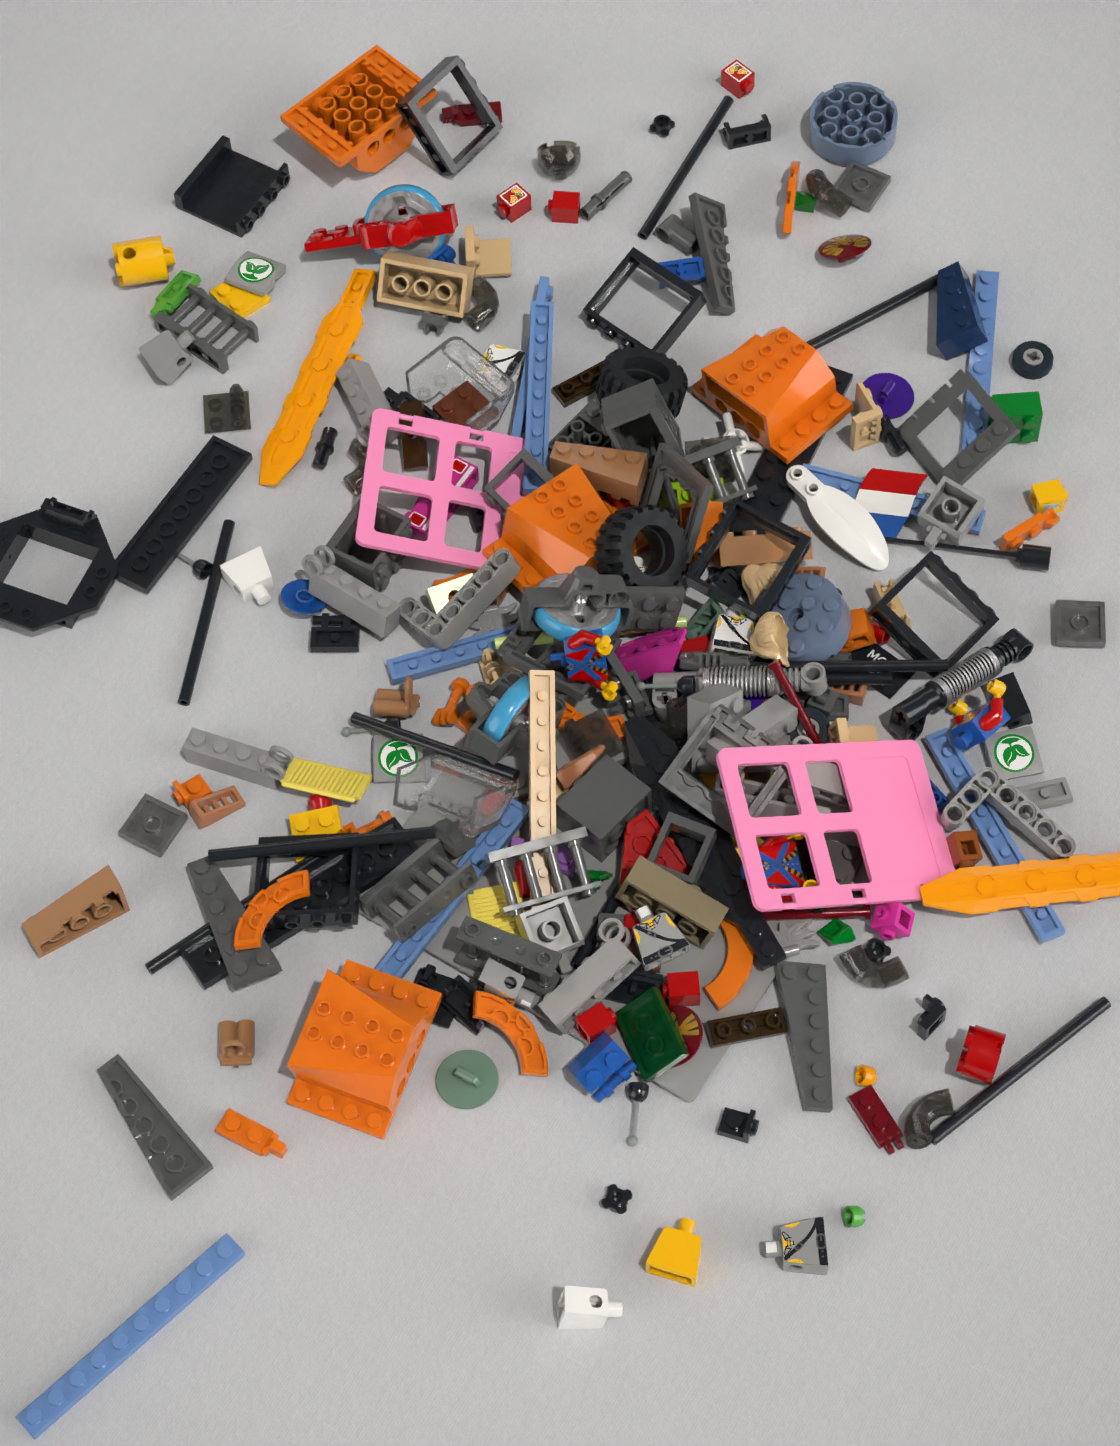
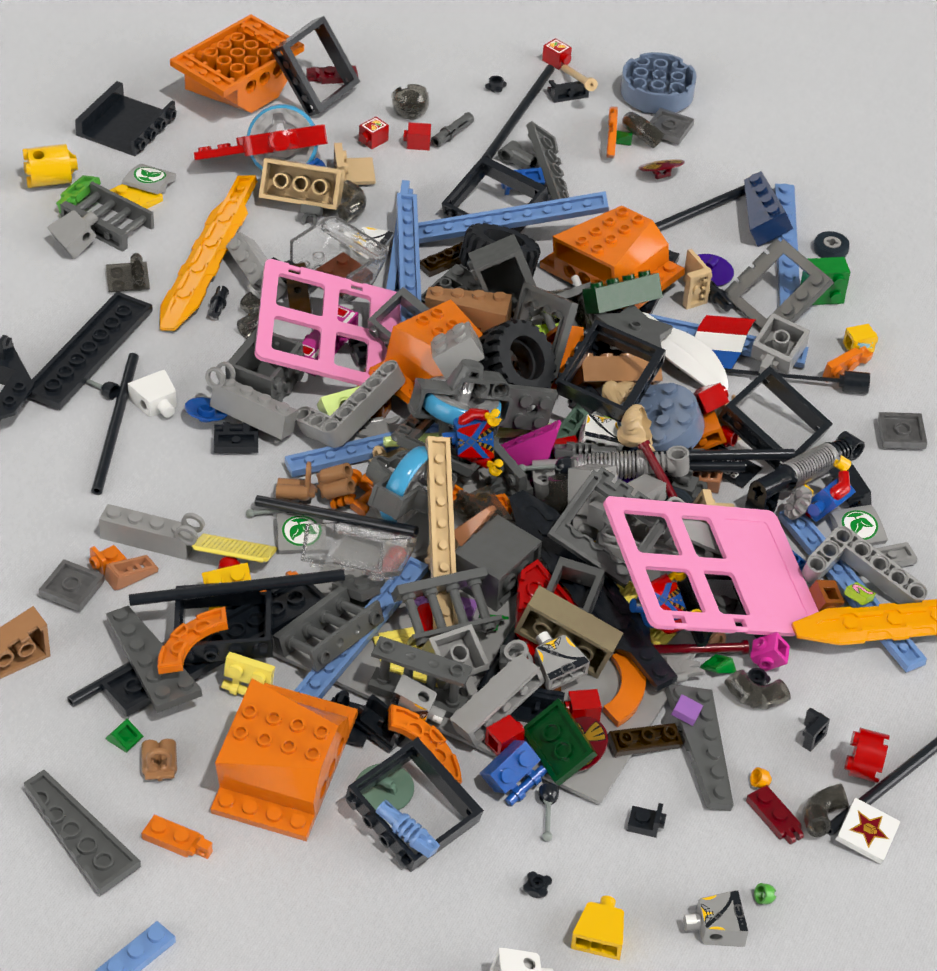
camera: 10 degrees left, 15 degrees down
(203, 1012) = (125, 736): none -> green slope
(330, 946) = (243, 670): none -> light yellow plate
(438, 698) = (336, 481): none -> medium nougat piece
(483, 1141) = (408, 829): none -> medium blue hinge
(526, 1079) = (438, 776): none -> black window
(573, 545) = (454, 346): none -> light grey hinge
(661, 334) = (515, 216): none -> medium blue plate
(768, 134) = (589, 83): none -> tan bar
(774, 447) = (622, 293): none -> brick
(785, 495) = (637, 324): none -> dark grey plate
(793, 995) = (687, 710): none -> medium lavender tile
(859, 590) = (711, 397): none -> red slope
(945, 730) = (798, 503): none -> light grey gear
(972, 1143) = (867, 830): none -> white tile
(1000, 848) = (859, 593): none -> lime tile

